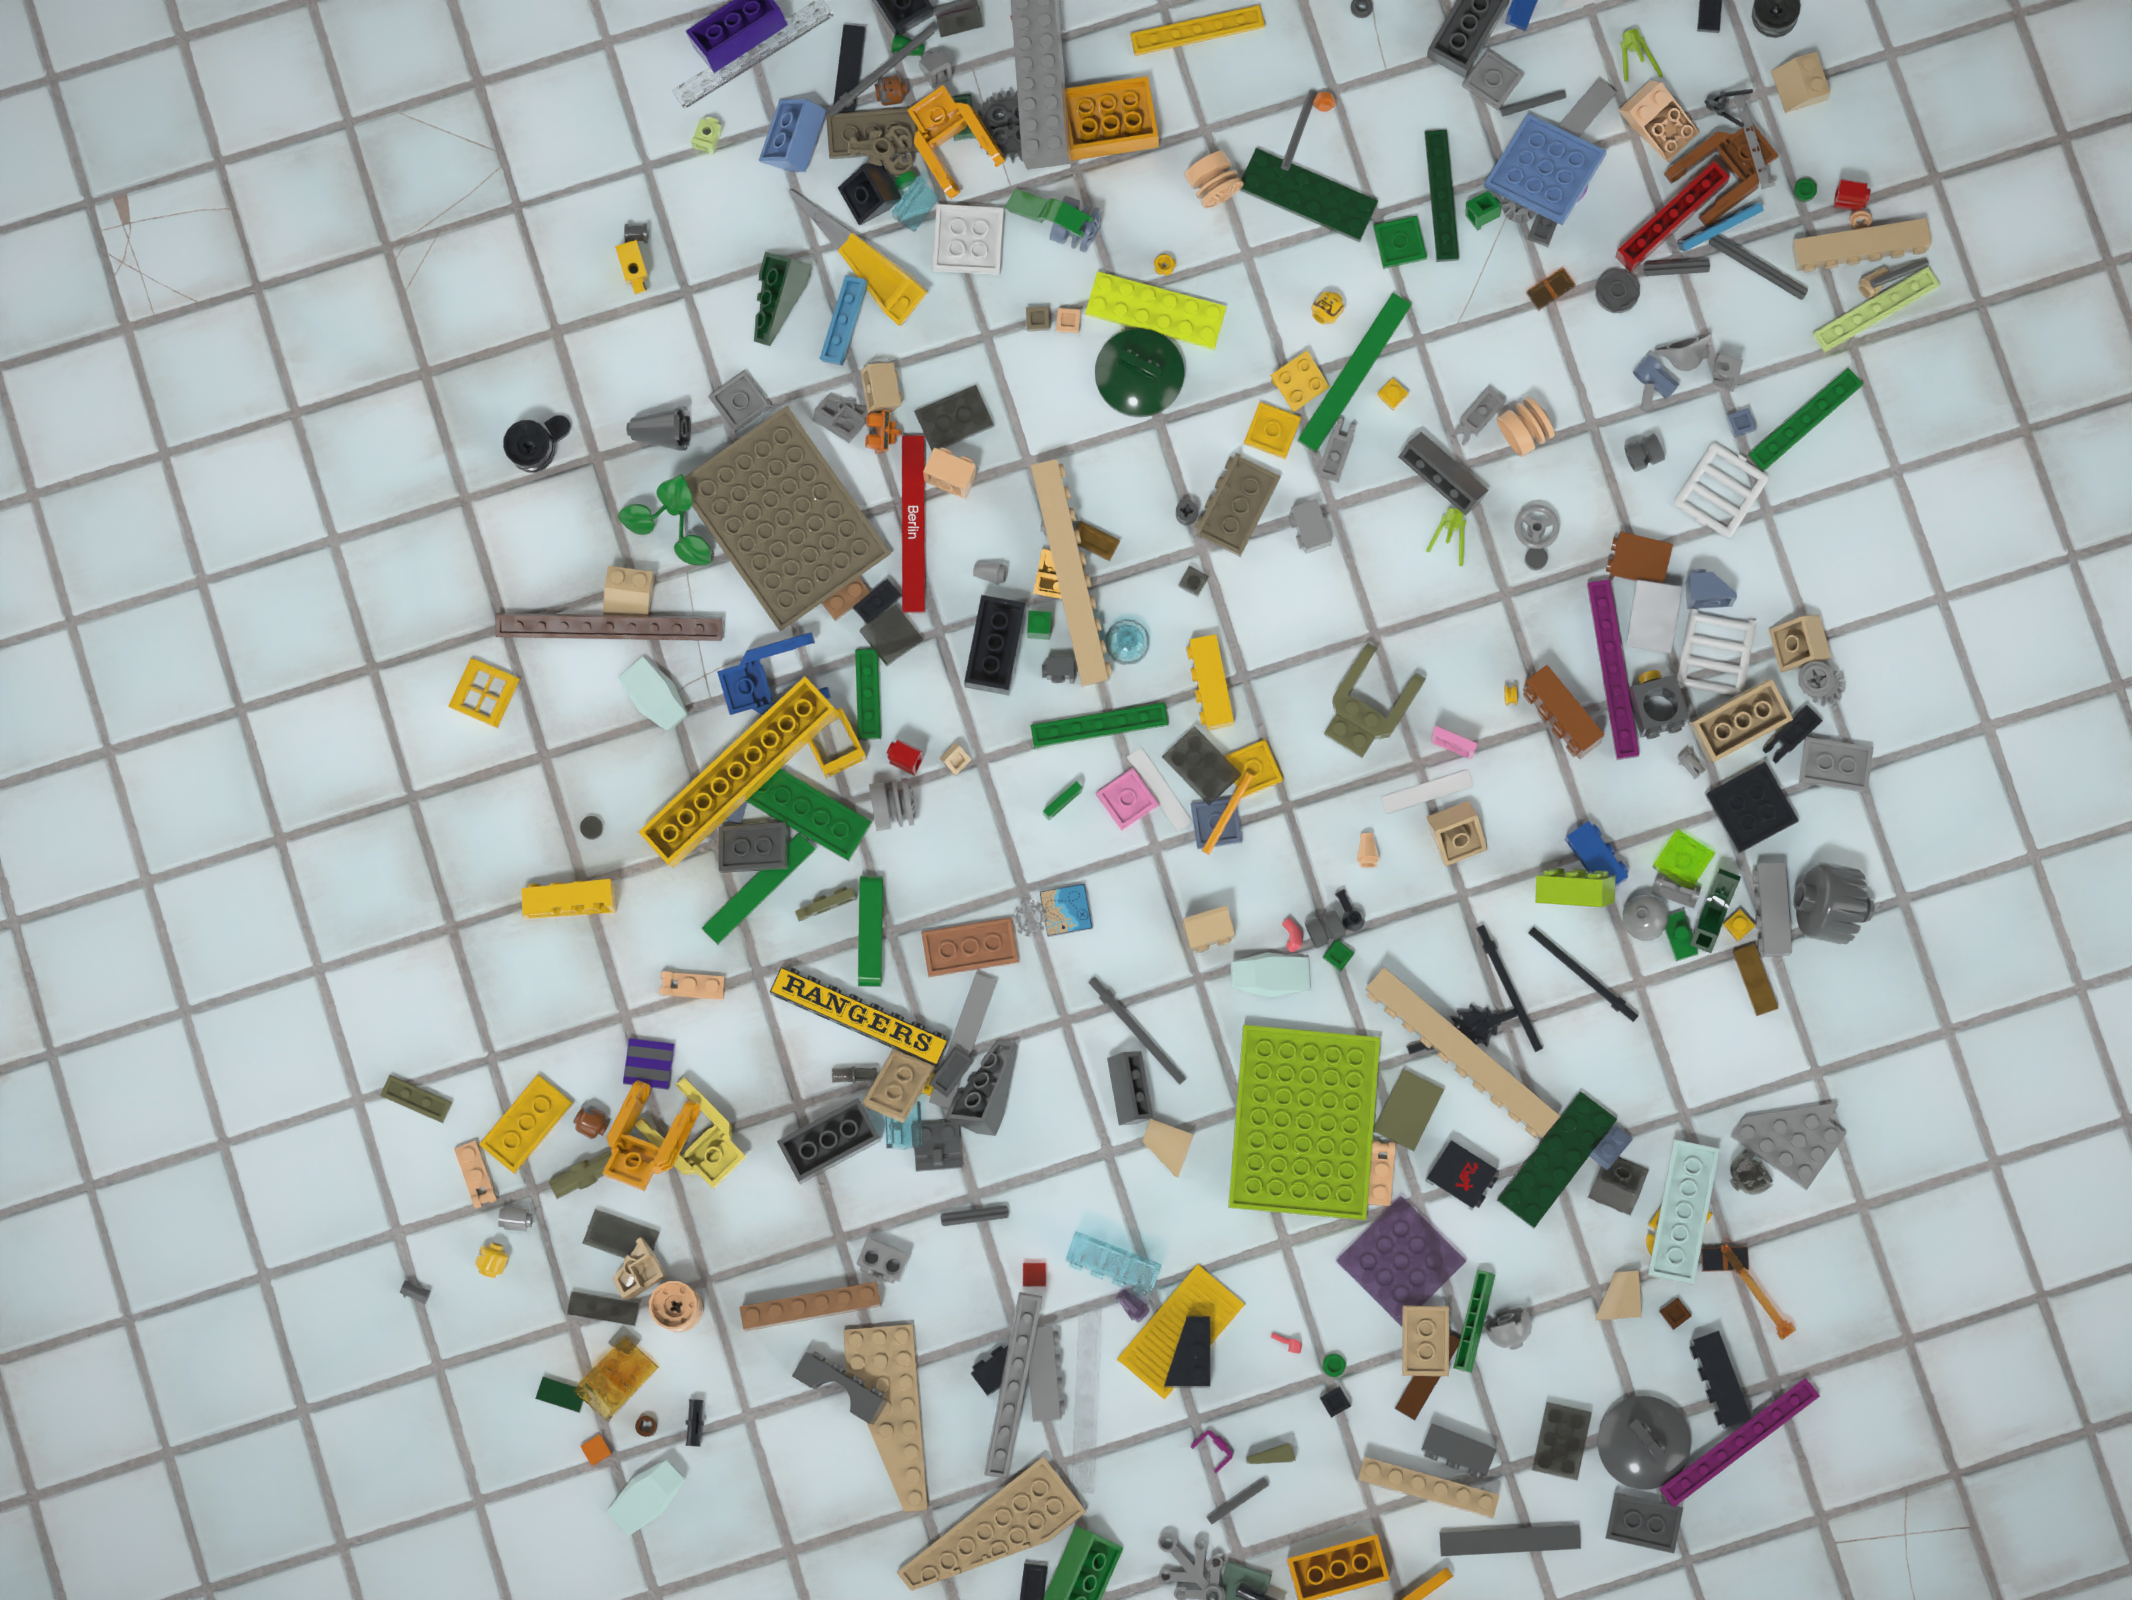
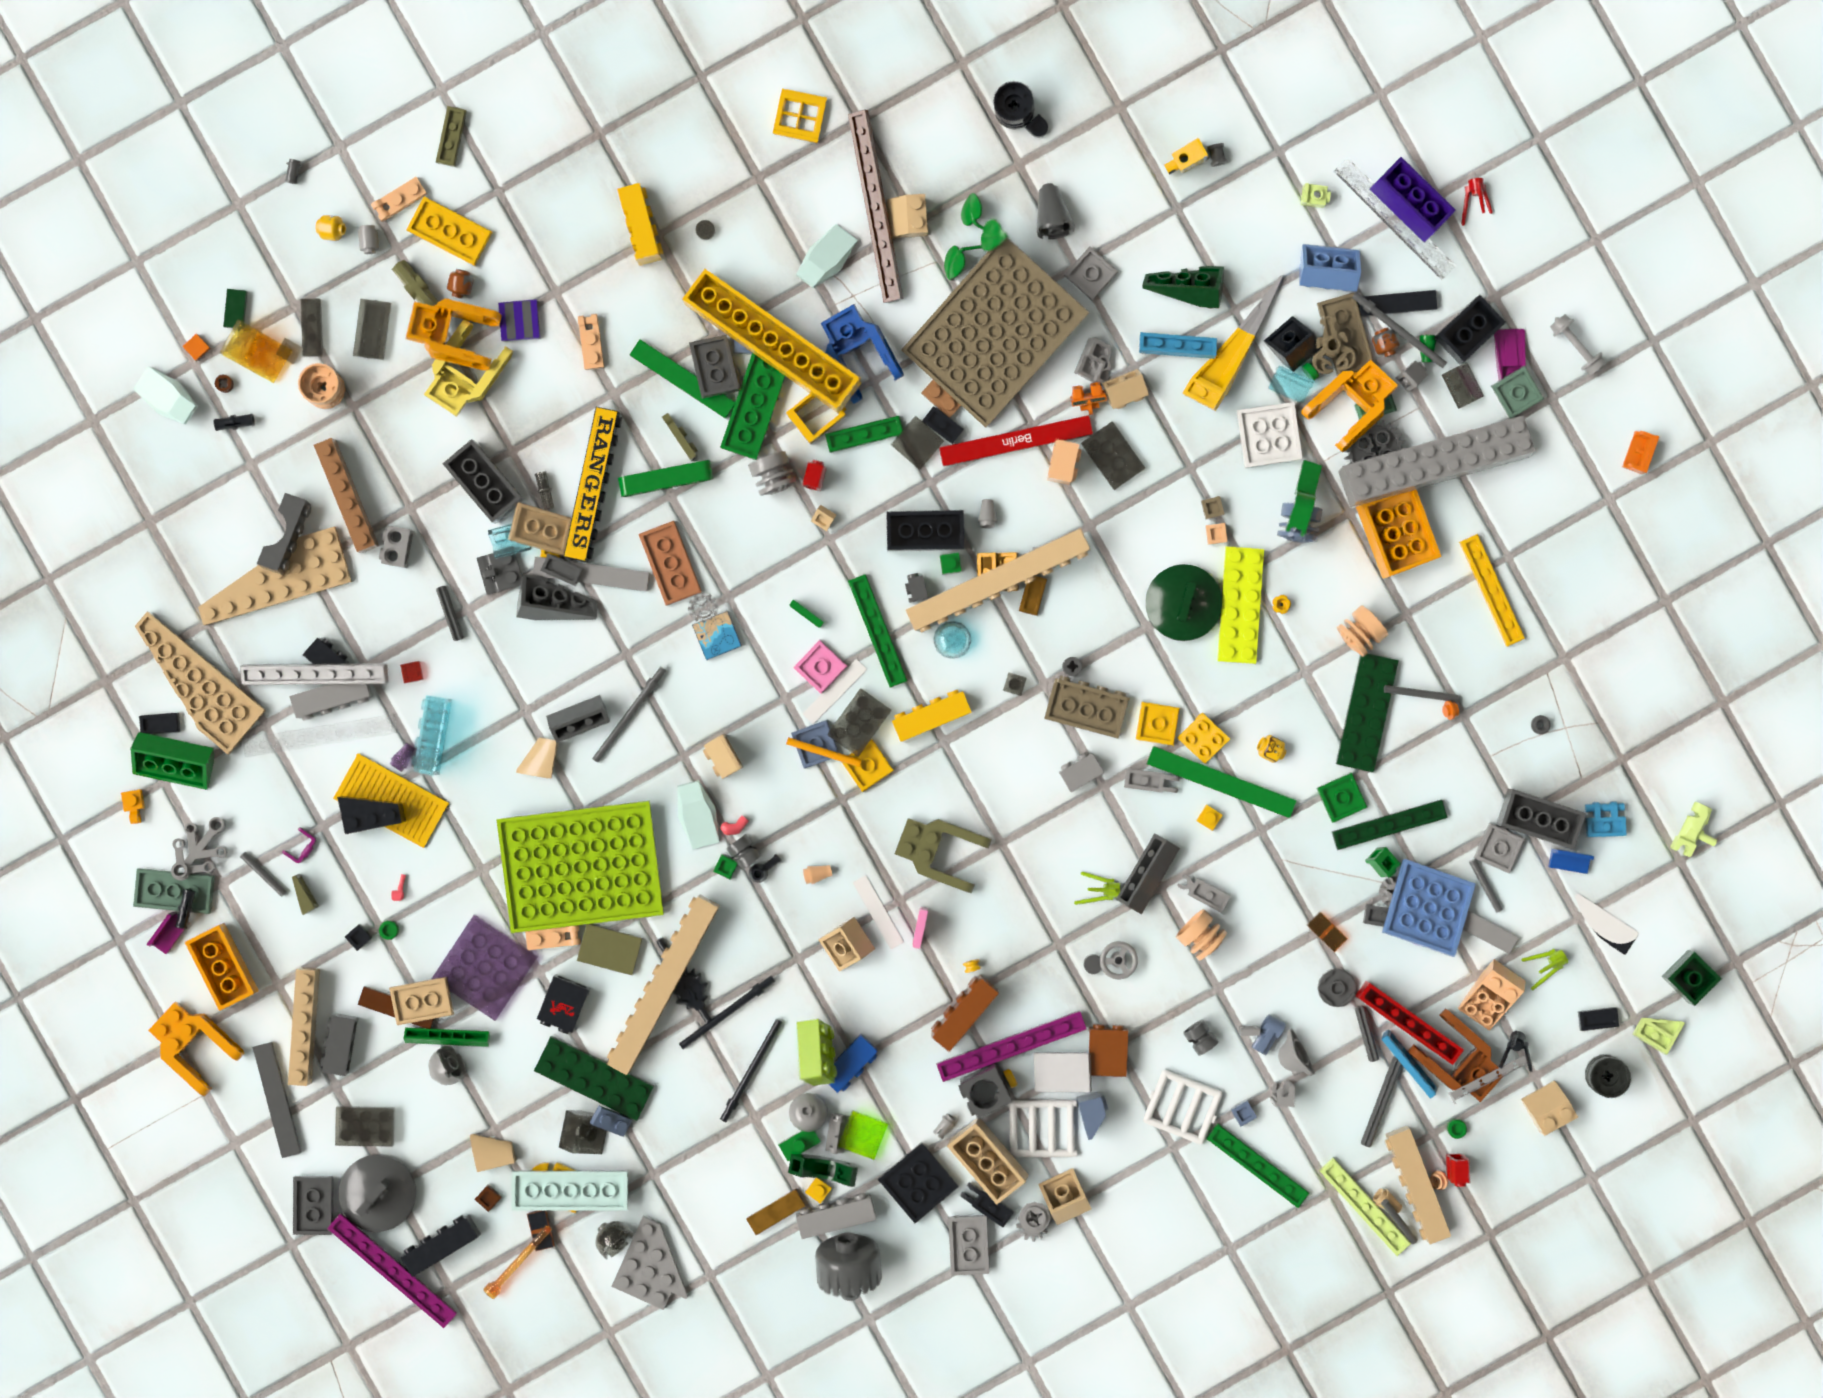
camera: 70 degrees right, 10 degrees up
(639, 1271) = (345, 349): tan slope -> none

